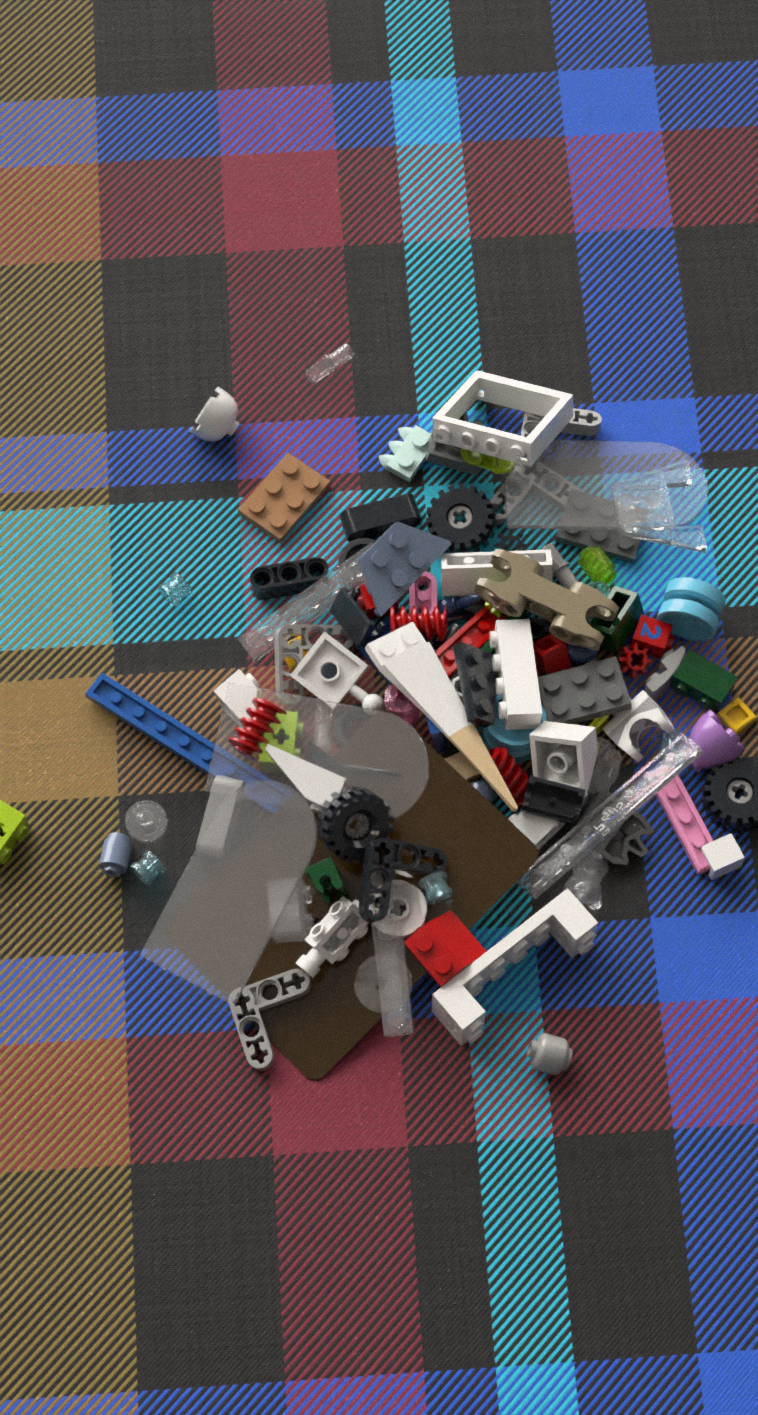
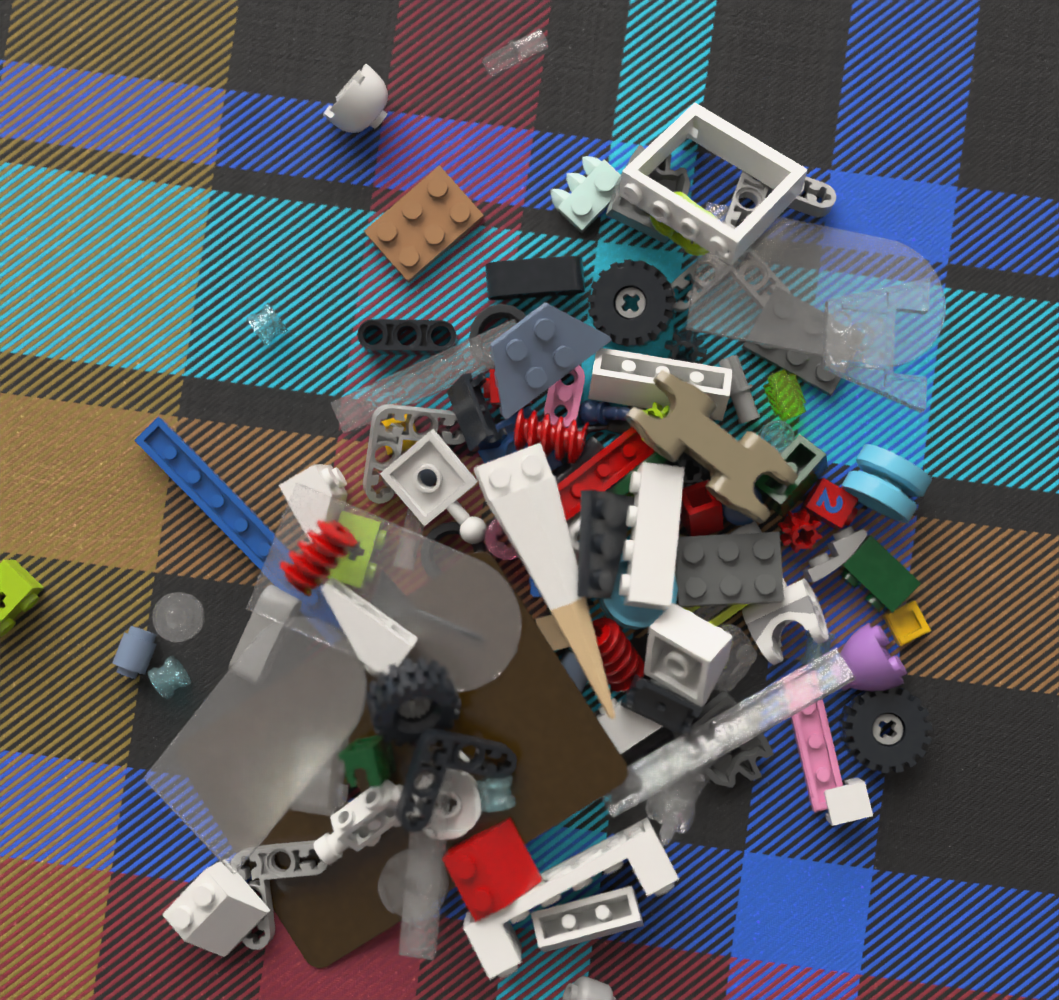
camera: 15 degrees right, 20 degrees up
(224, 1037) = (216, 910): none -> white slope
(533, 985) = (587, 919): none -> white brick

